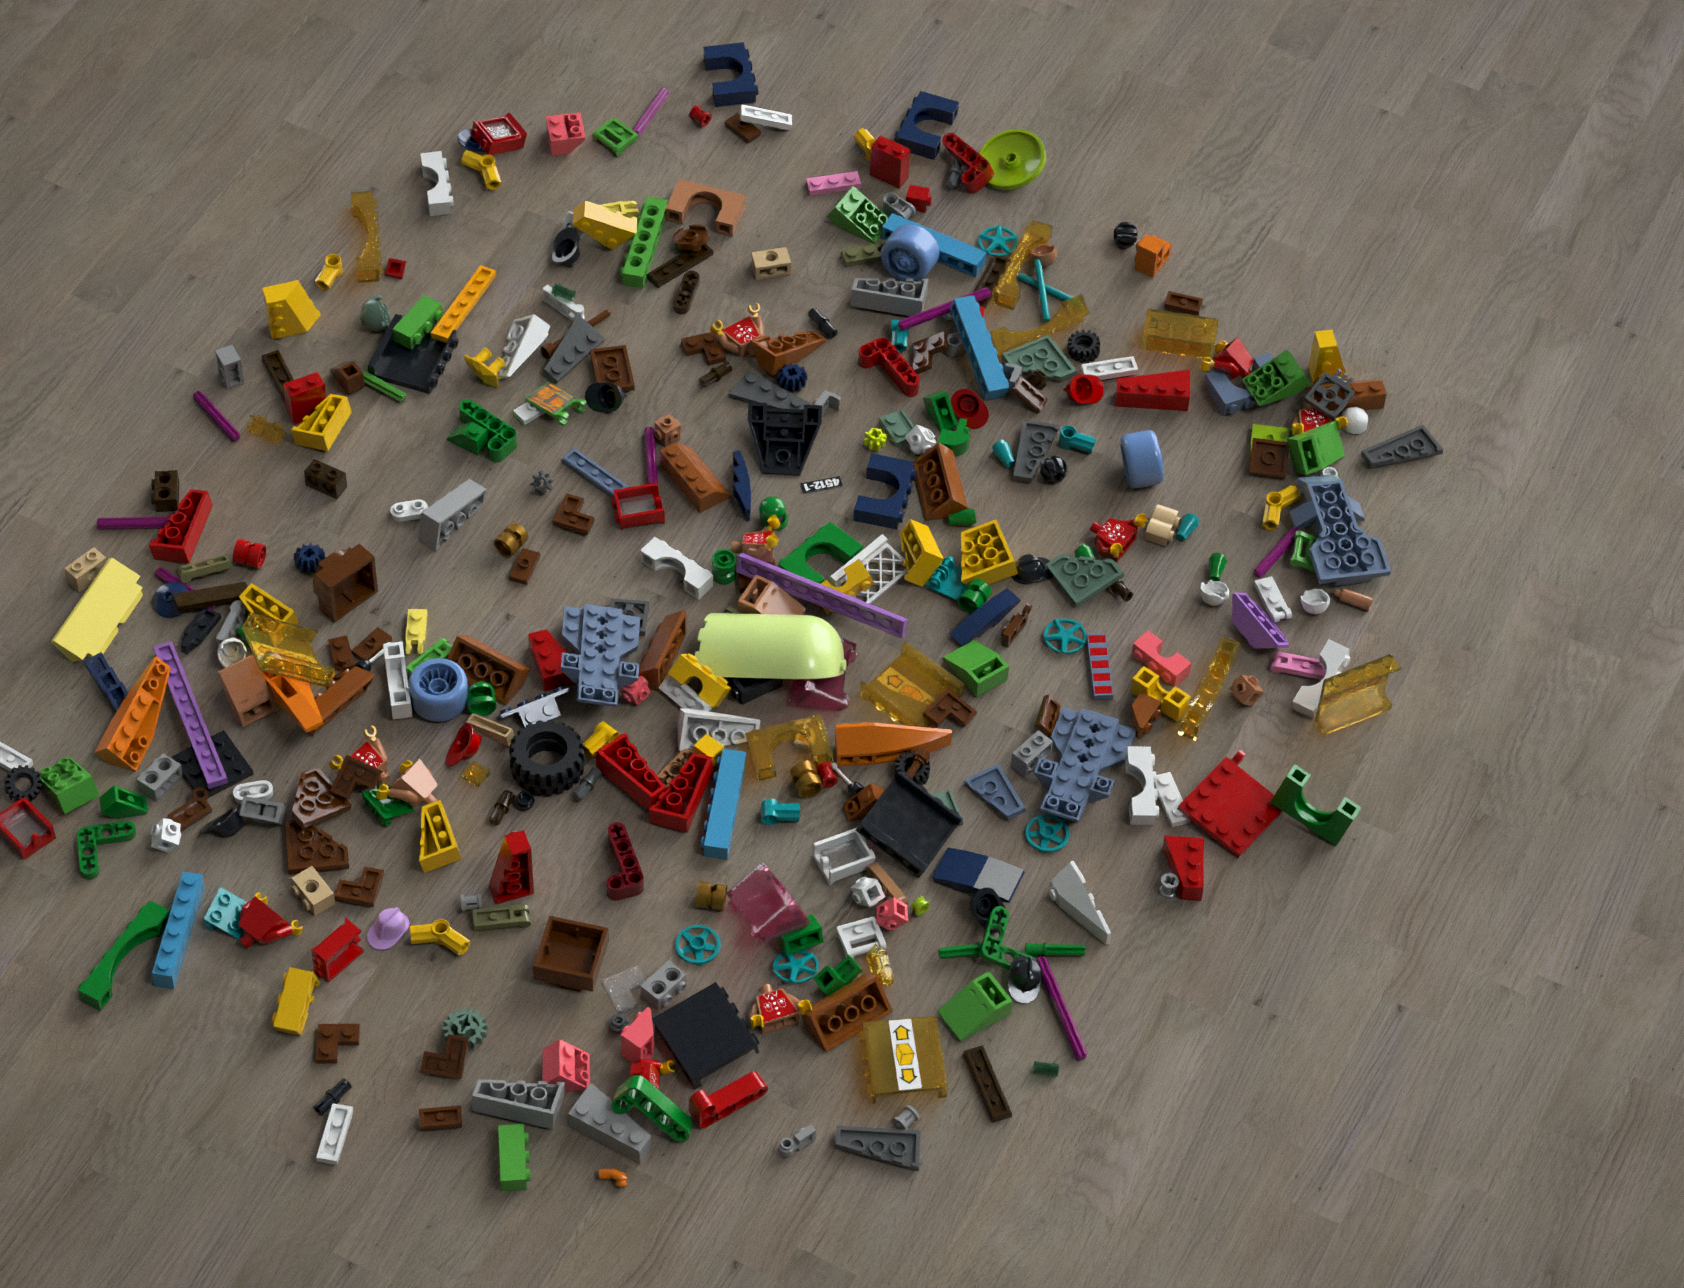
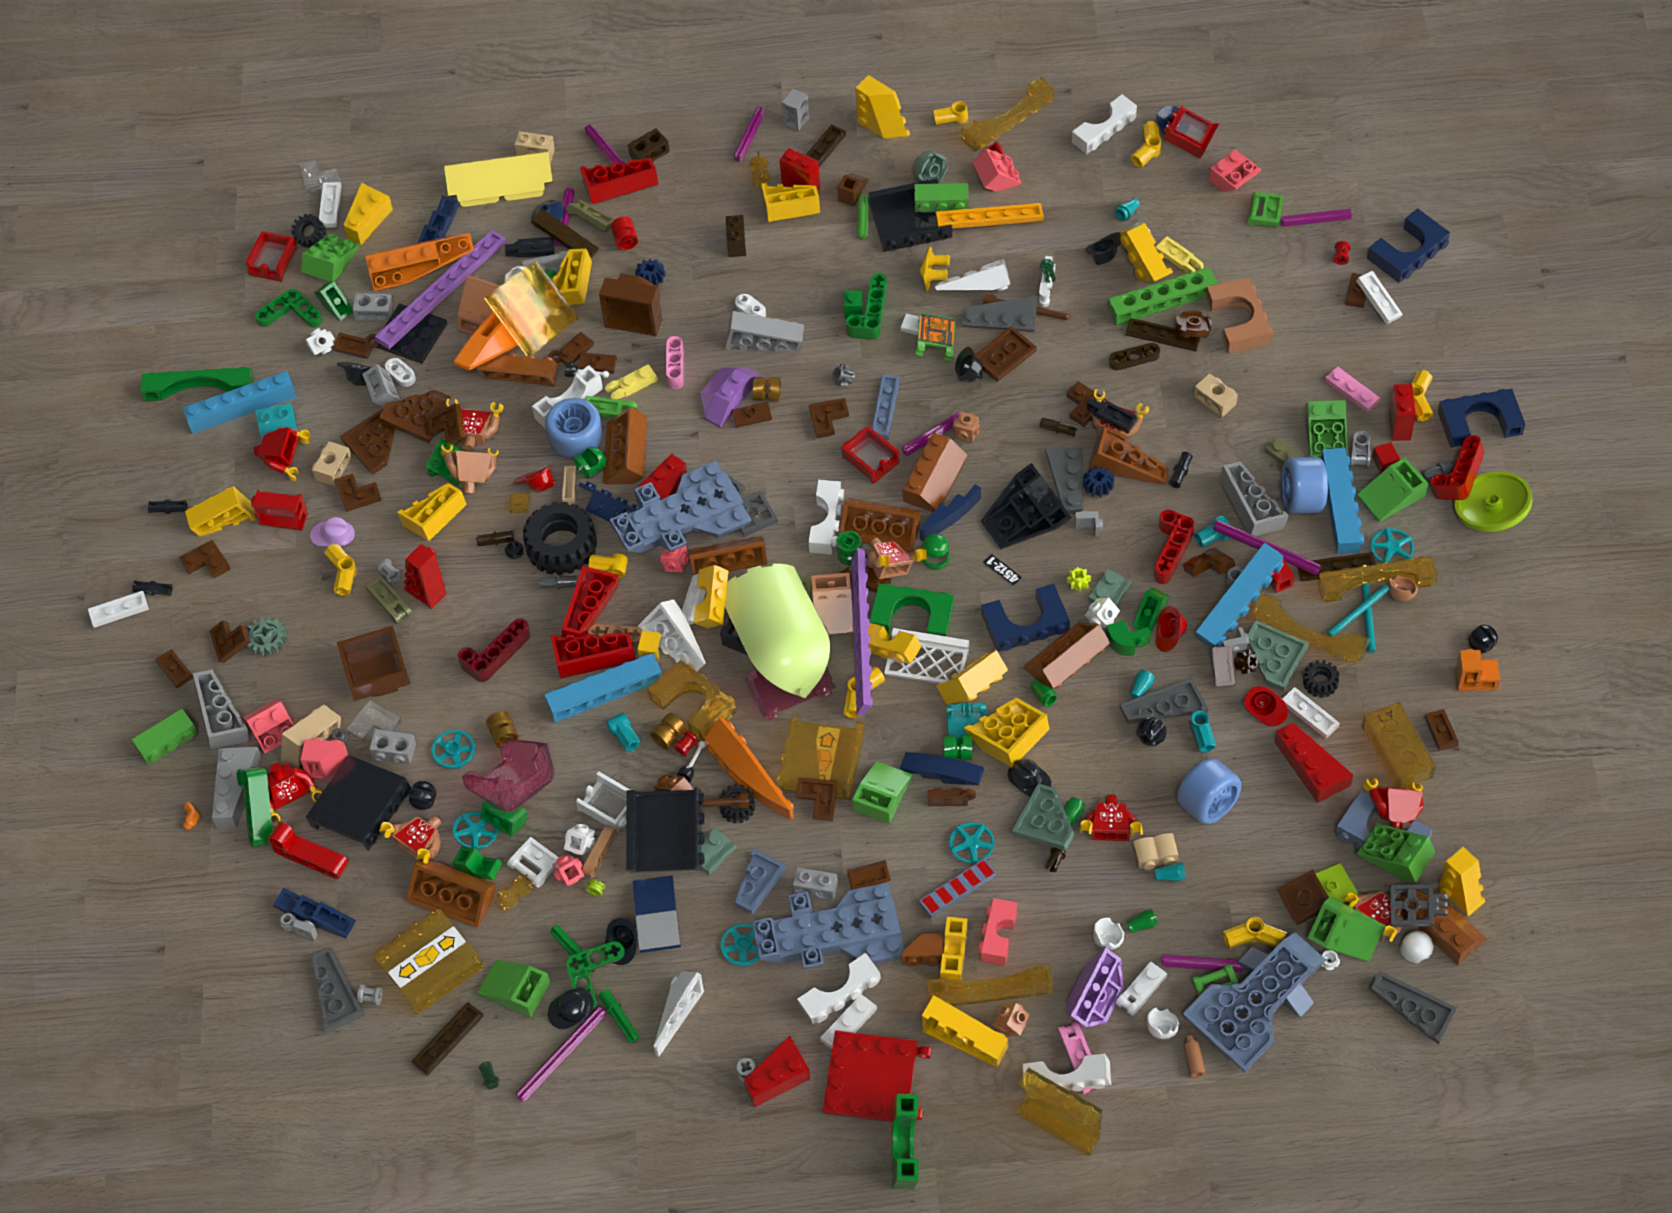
camera: 65 degrees right, 5 degrees up
(42, 730) = (366, 213): none -> yellow wedge
(247, 1043) = (167, 506): none -> black pin
(419, 276) = (996, 171): none -> coral slope
(424, 589) = (675, 362): none -> bright pink beam
(488, 570) = (726, 393): none -> medium lavender wedge
(536, 217) = (1125, 211): none -> teal cone
(606, 1043) = (316, 725): none -> tan wedge
(714, 533) = (881, 521): none -> dark orange slope
(734, 984) = (422, 795): none -> black piece
(743, 329) = (1112, 414): none -> black hinge
(787, 1125) = (319, 914): none -> dark blue slope
(868, 637) = (850, 704): none -> yellow piece
(952, 208) = (1393, 490): none -> bright green slope
(1236, 726) = (963, 1032): none -> yellow wedge

